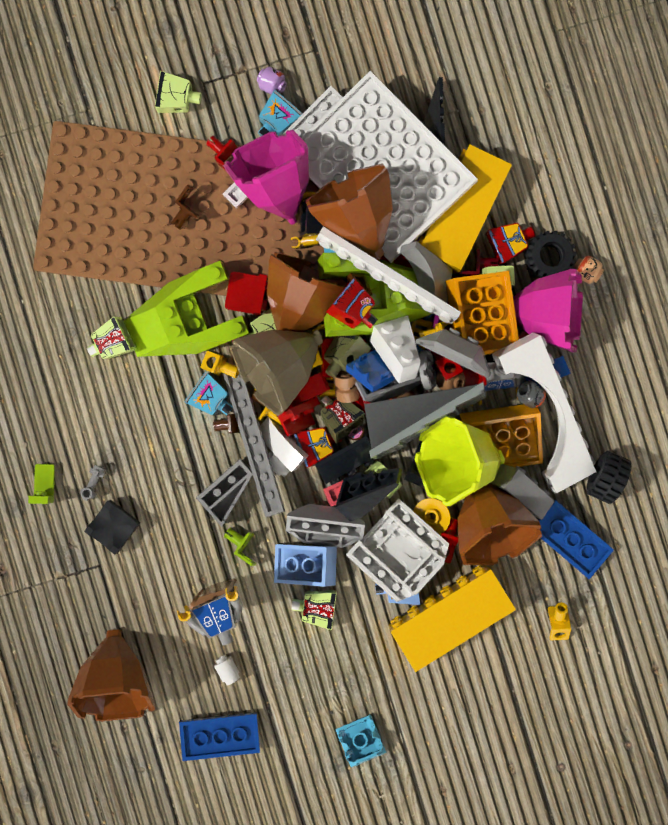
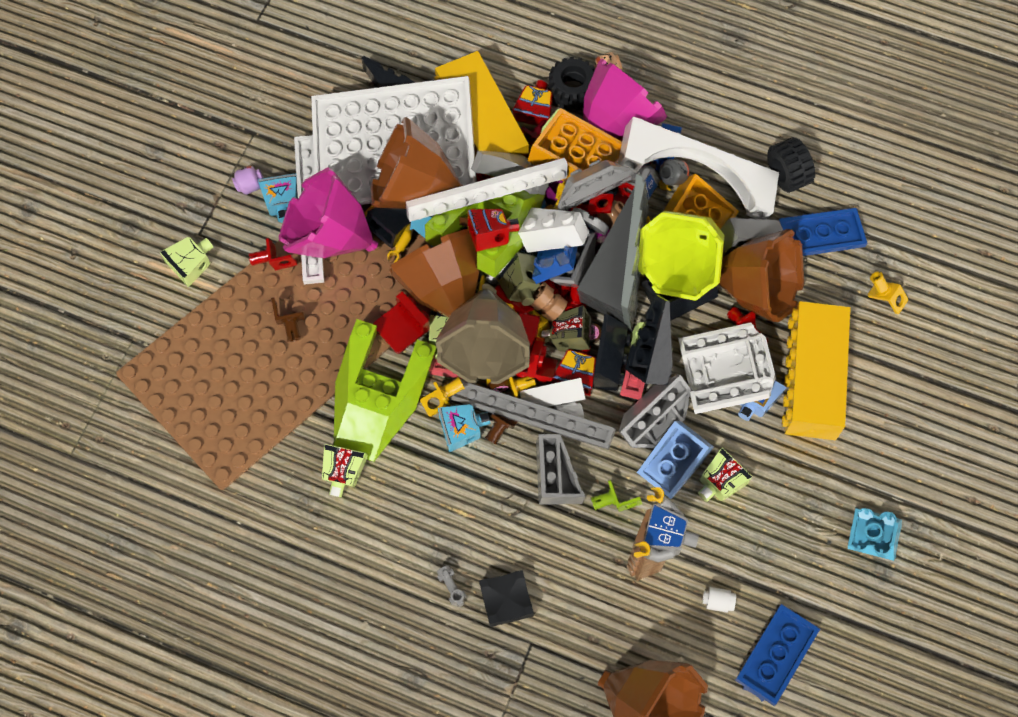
camera: 50 degrees left, 20 degrees down
(43, 484) = (416, 631): lime bracket -> none
(434, 506) = (714, 313): yellow dish -> none

